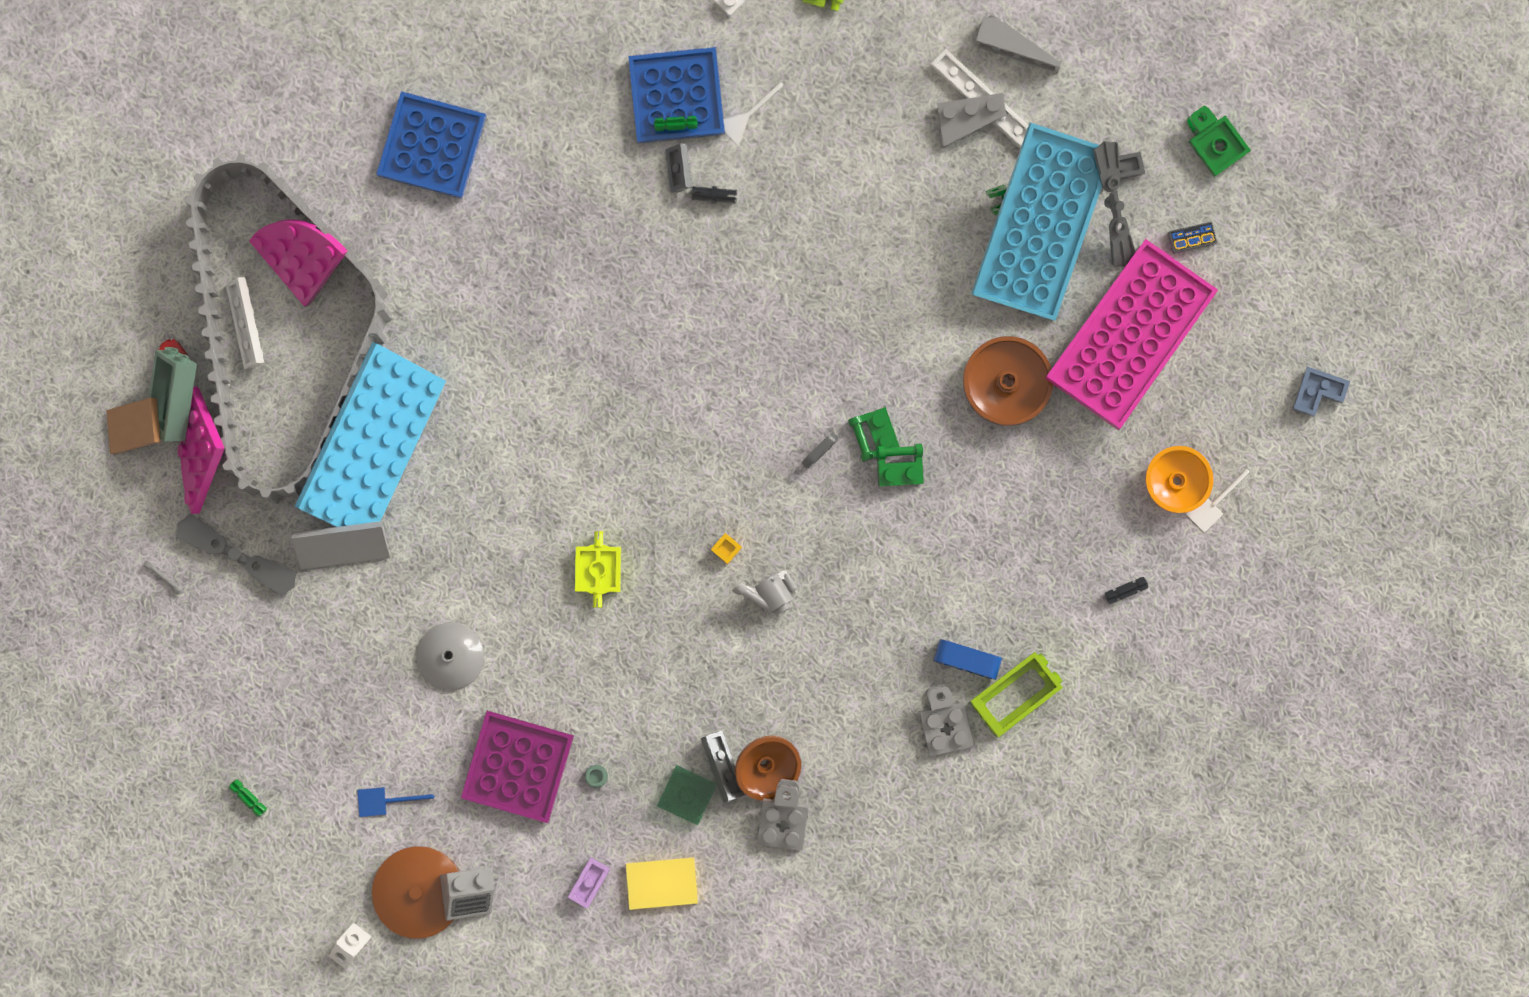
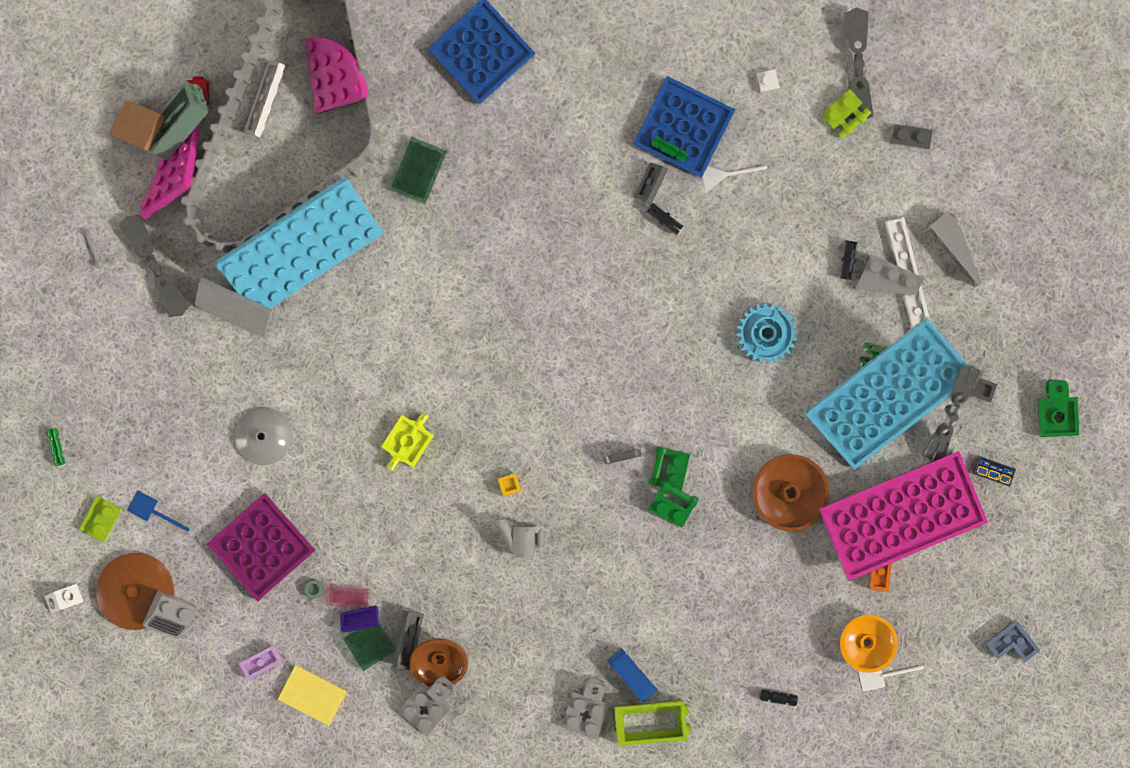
camera: 30 degrees right, 5 degrees up
(337, 841) = (100, 519): none -> lime plate
(442, 298) = (418, 170): none -> clear green plate
(636, 762) = (348, 597): none -> clear pink tile
(661, 775) = (359, 619): none -> dark purple tile
(888, 226) = (752, 336): none -> medium azure gear
(919, 122) = (848, 260): none -> black pin
(1149, 409) = (880, 578): none -> orange plate

